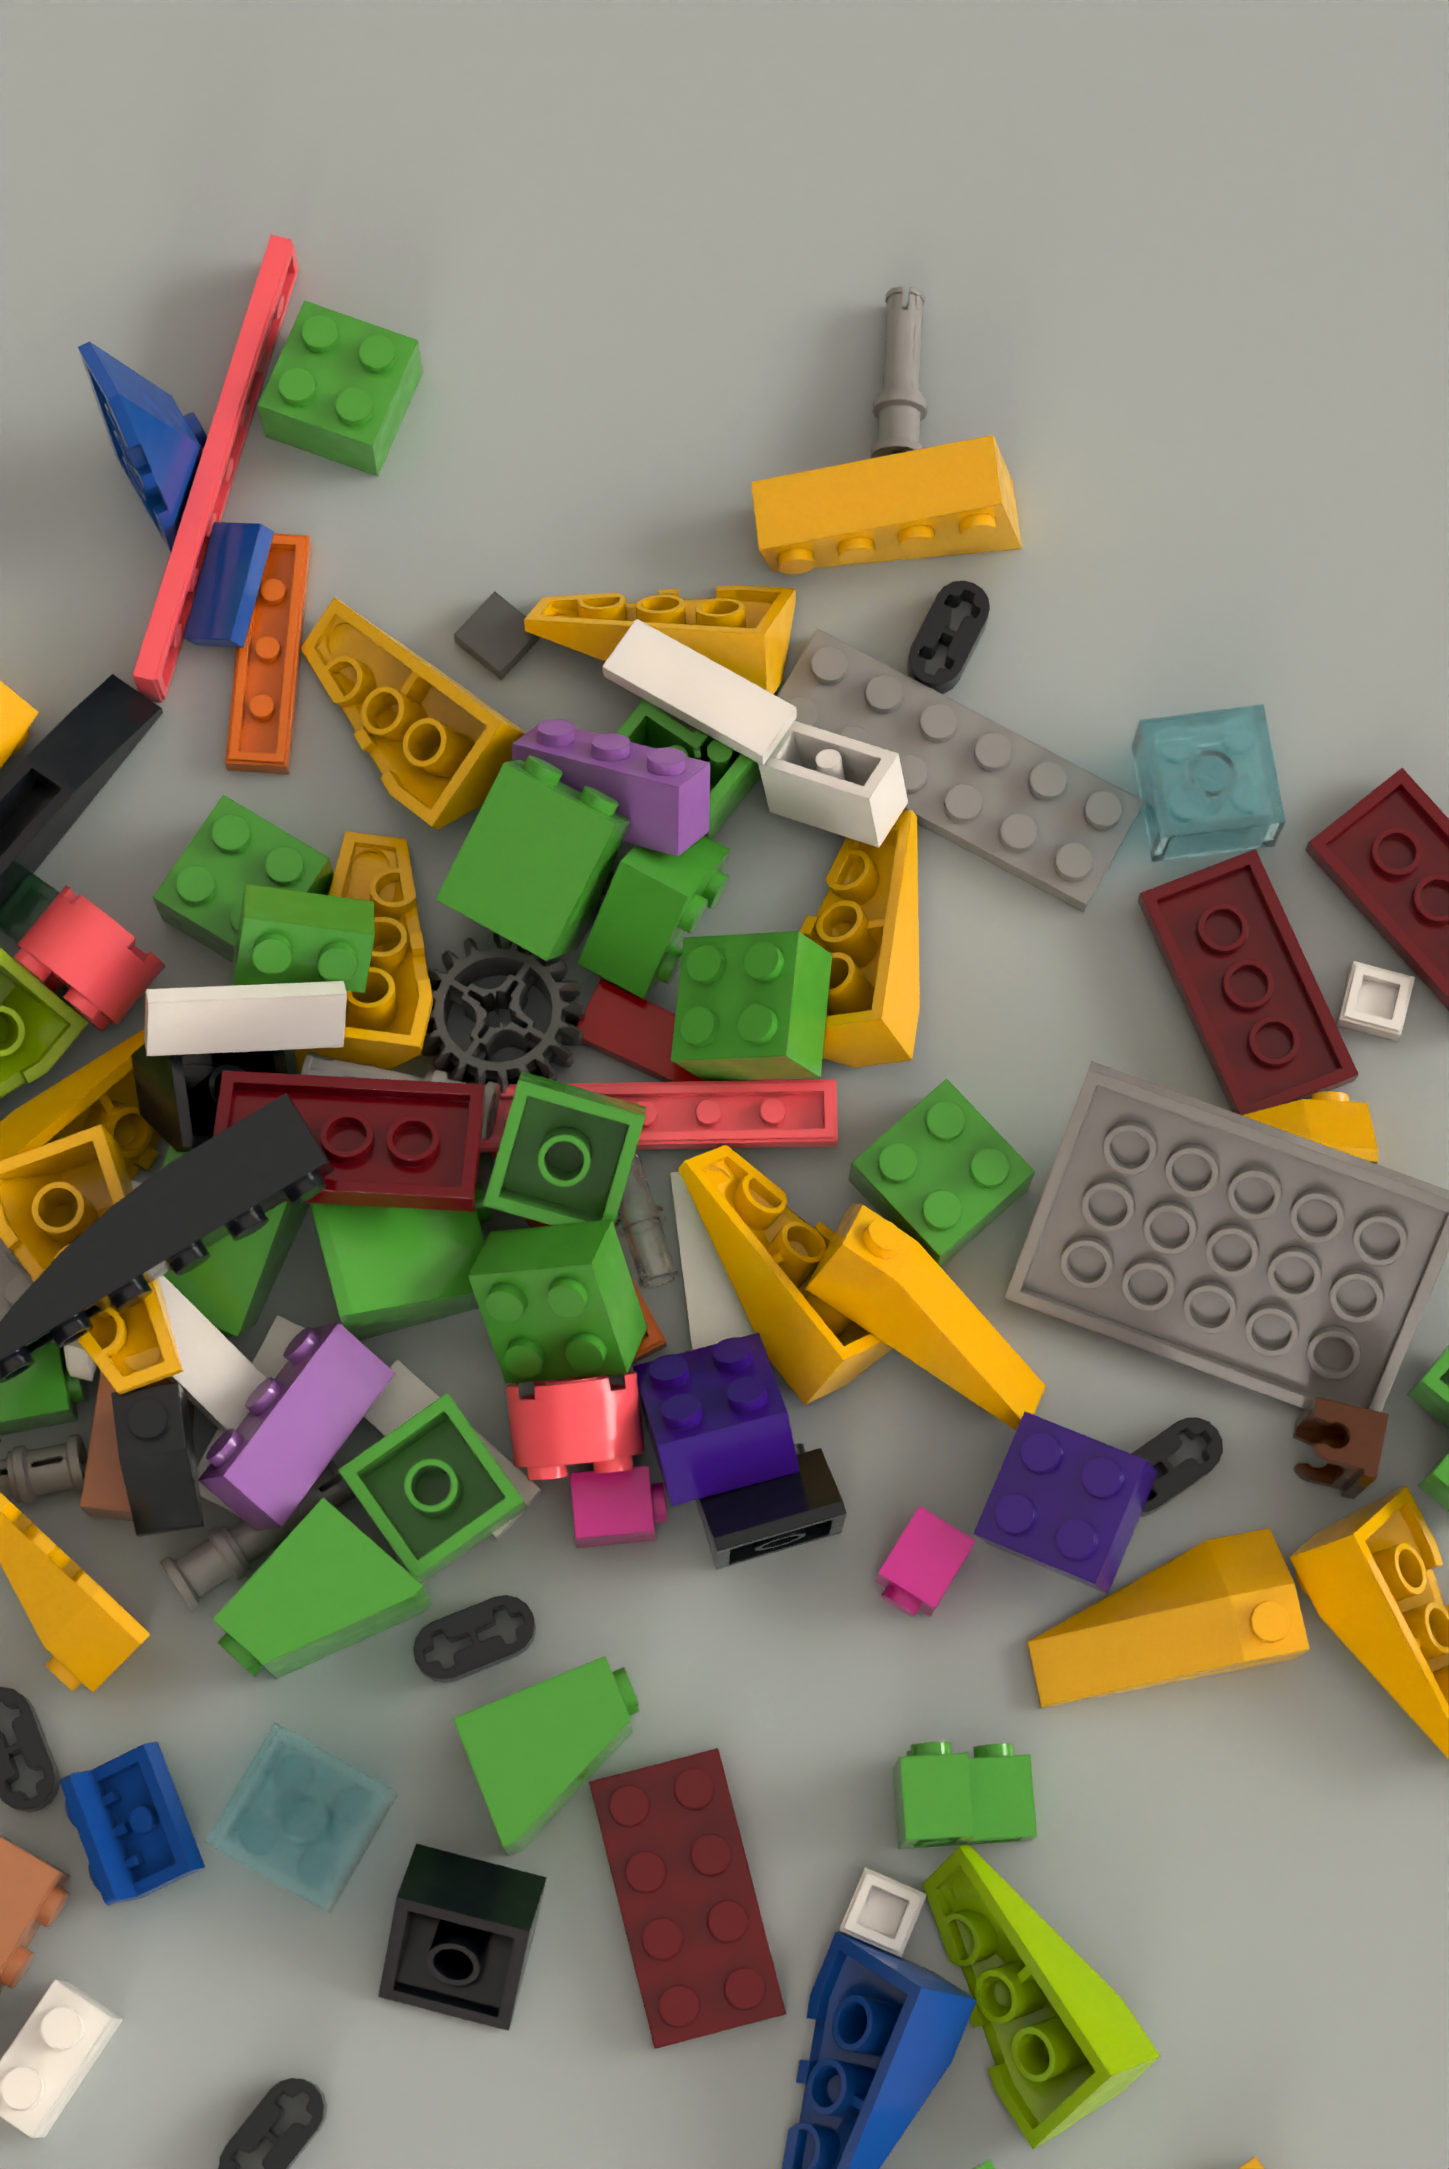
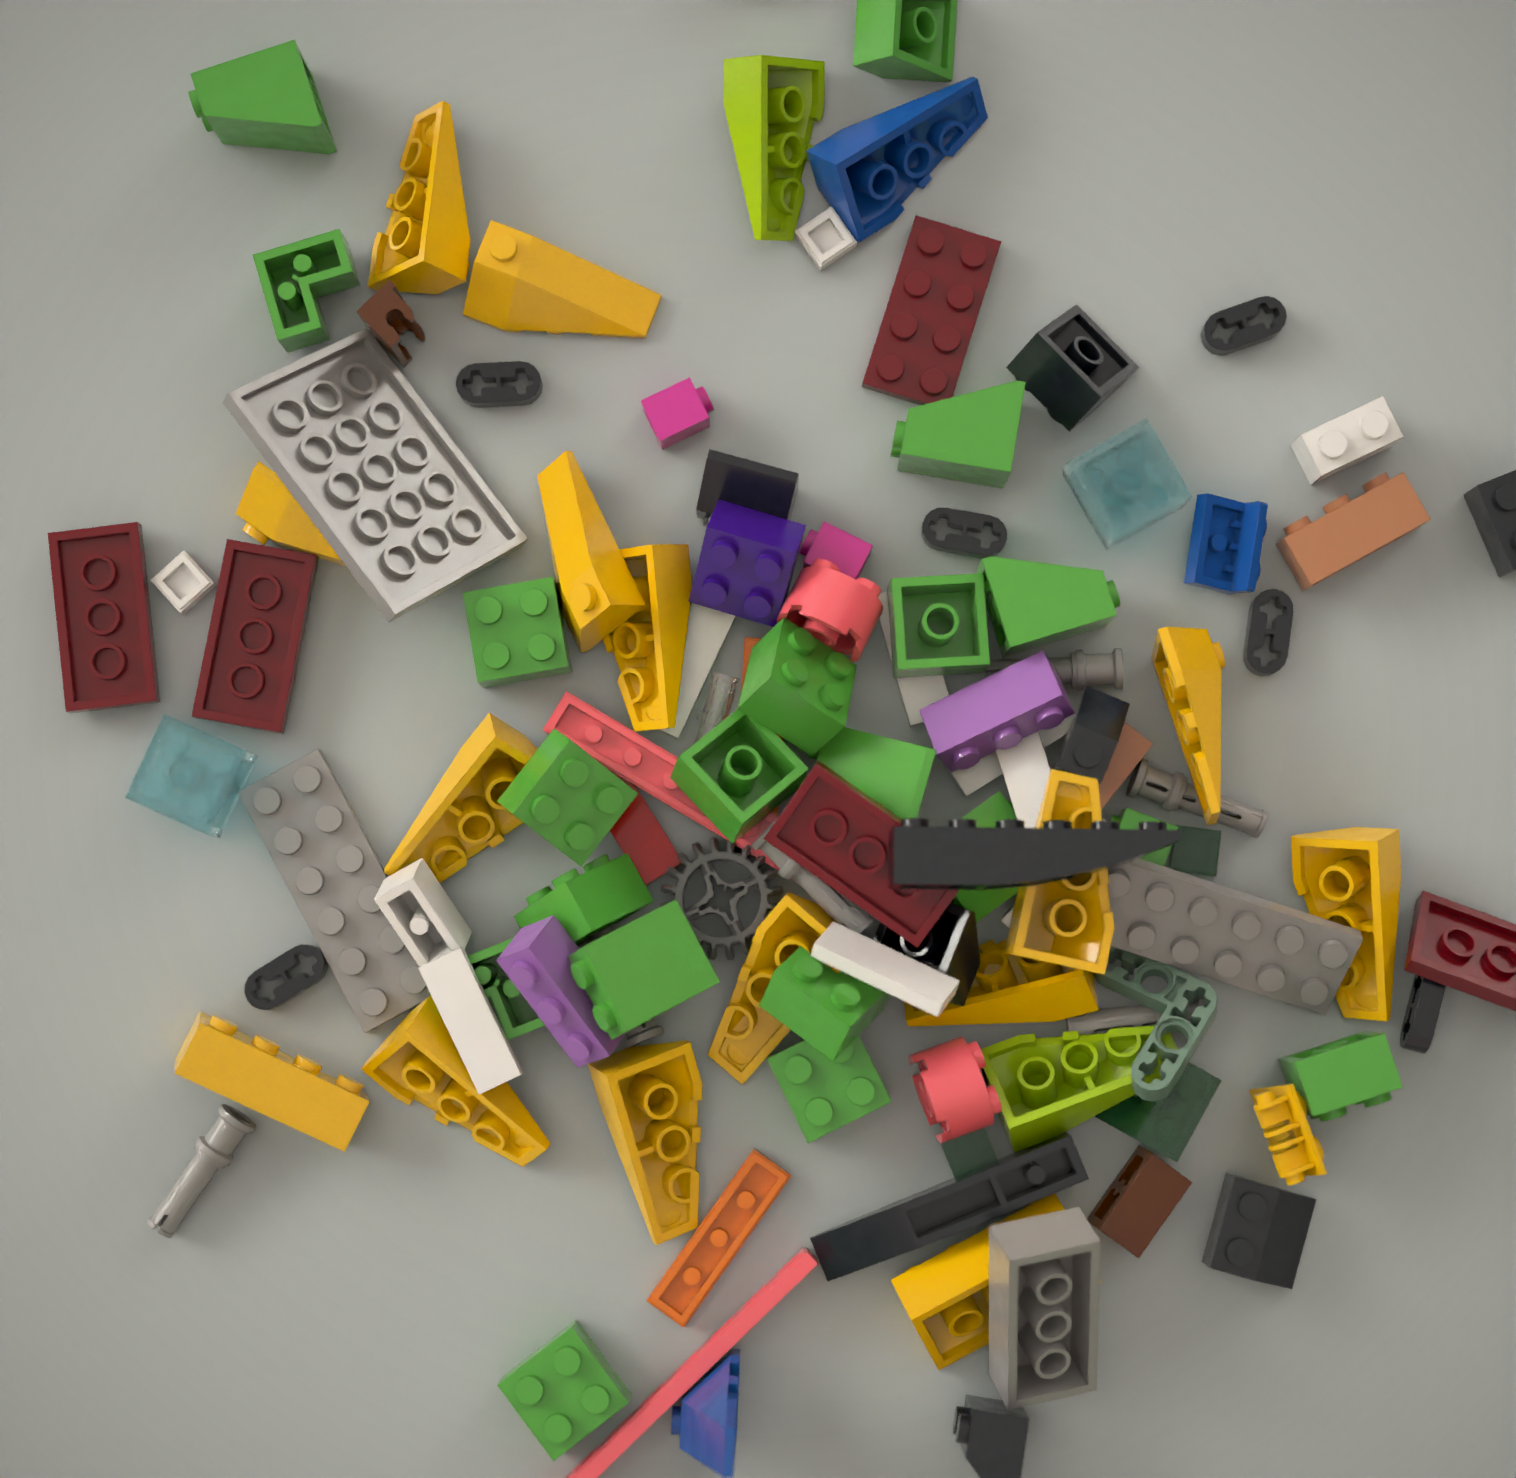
camera: 140 degrees left, 10 degrees up
(228, 584) = (718, 1296): blue tile -> none
(496, 636) = (568, 1157): dark grey tile -> none
(962, 1799) = (743, 265): bright green brick -> none
(1066, 1502) = (573, 391): dark purple brick -> none

